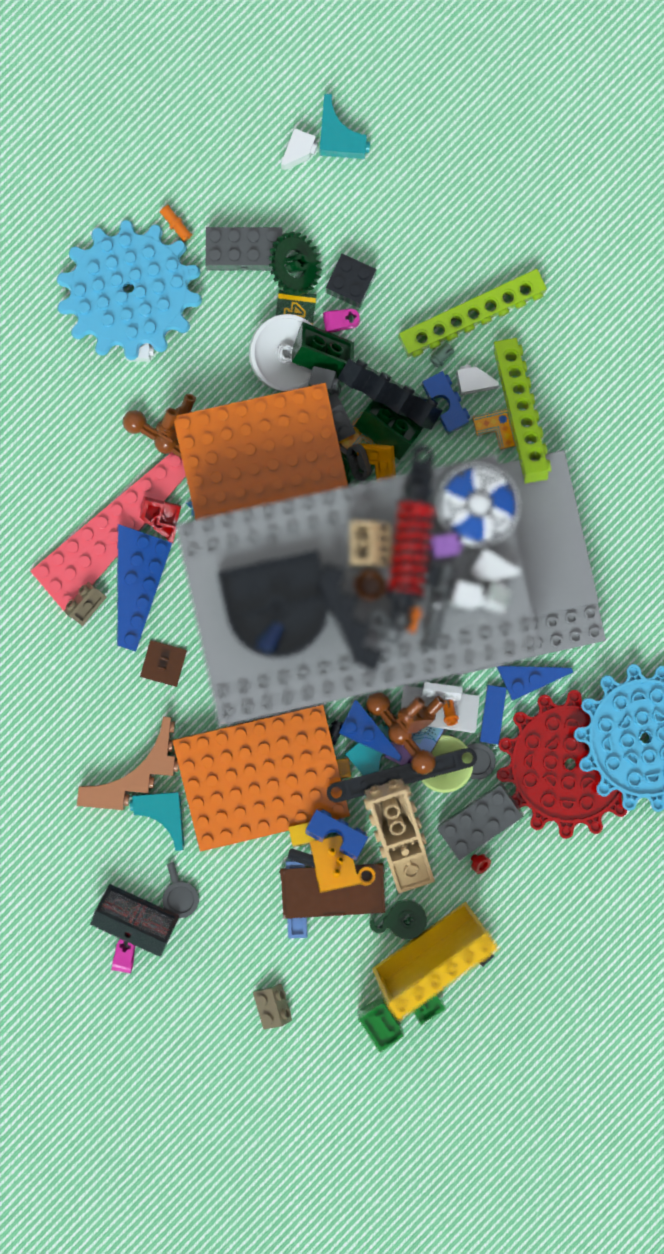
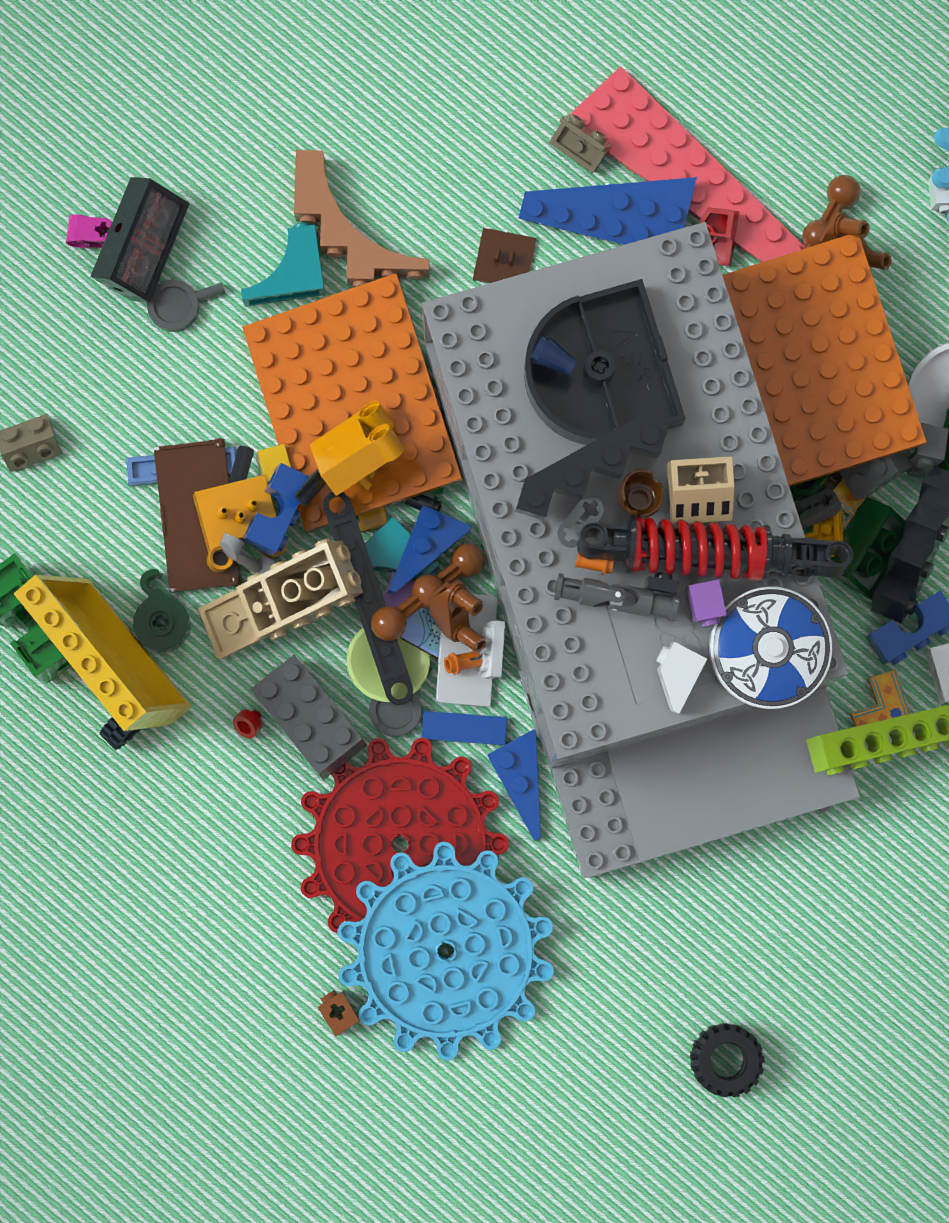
camera: 85 degrees right, 5 degrees down
(302, 779) = (352, 452): none -> light orange piece
(363, 866) = (232, 548): none -> light grey bar
(466, 595) = (635, 634): white brick -> none
(495, 597) = (637, 679): white slope -> none

